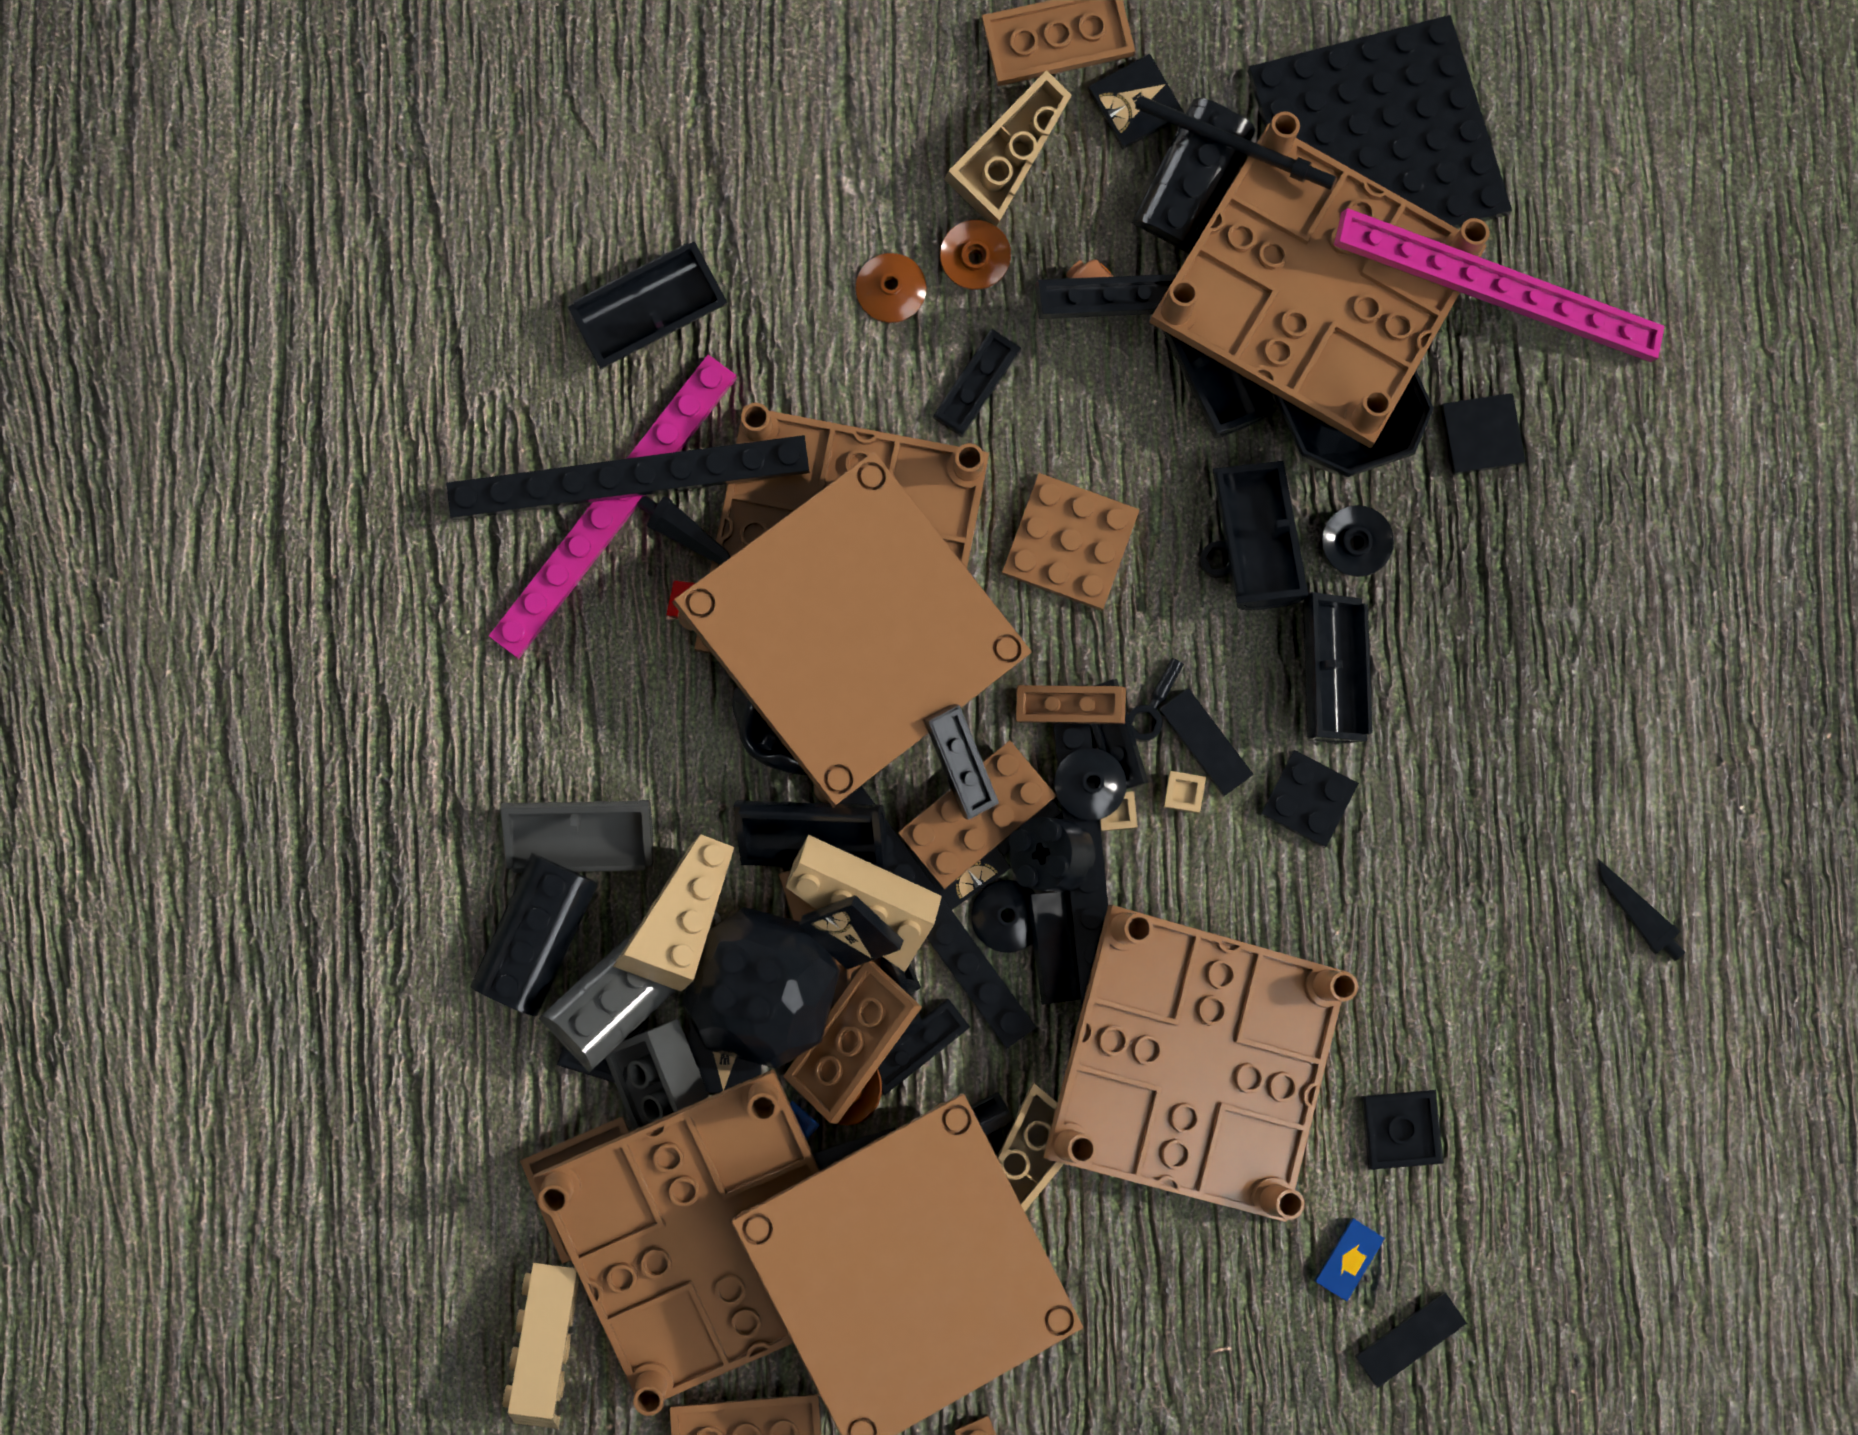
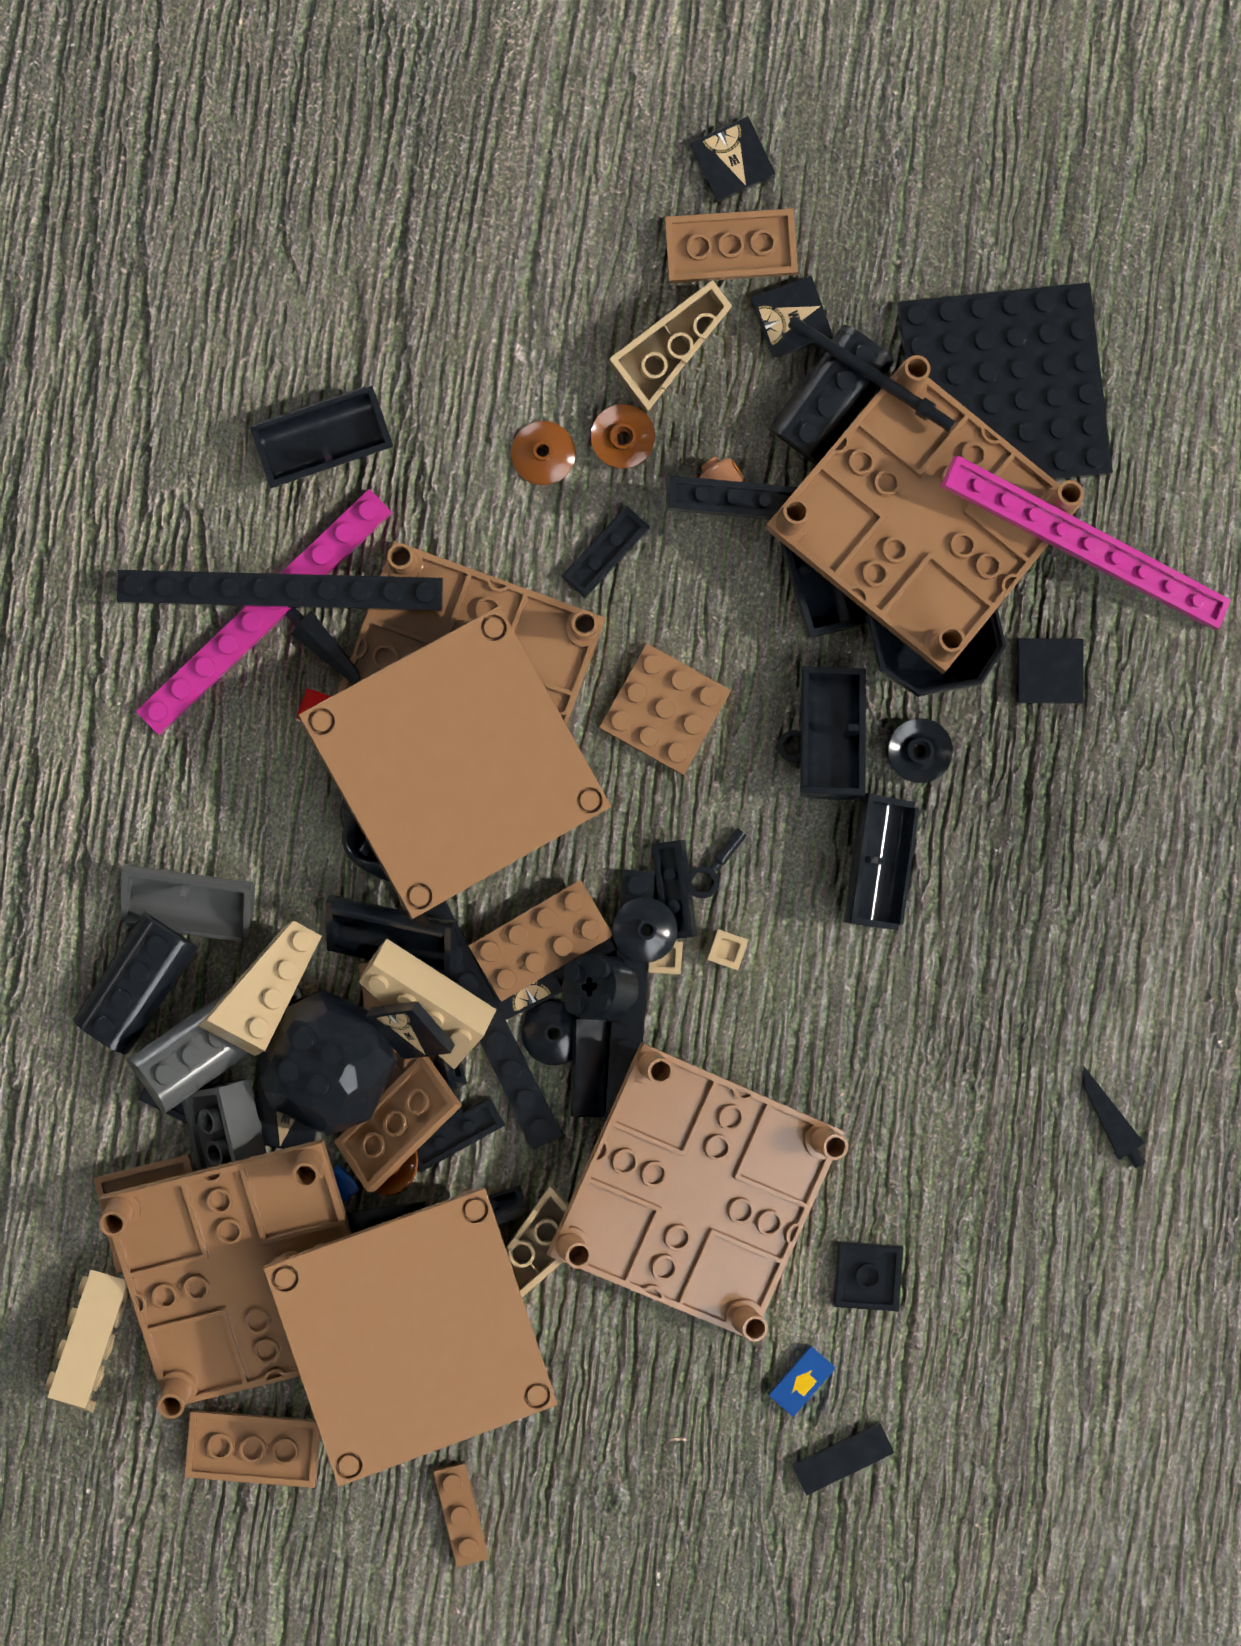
camera: 15 degrees right, 5 degrees up
(961, 761) = (532, 894): tile -> none
(1071, 704) = (639, 856): medium nougat plate -> none
(1206, 742) = (755, 908): black tile -> none
(1309, 799) = (837, 972): black plate -> none

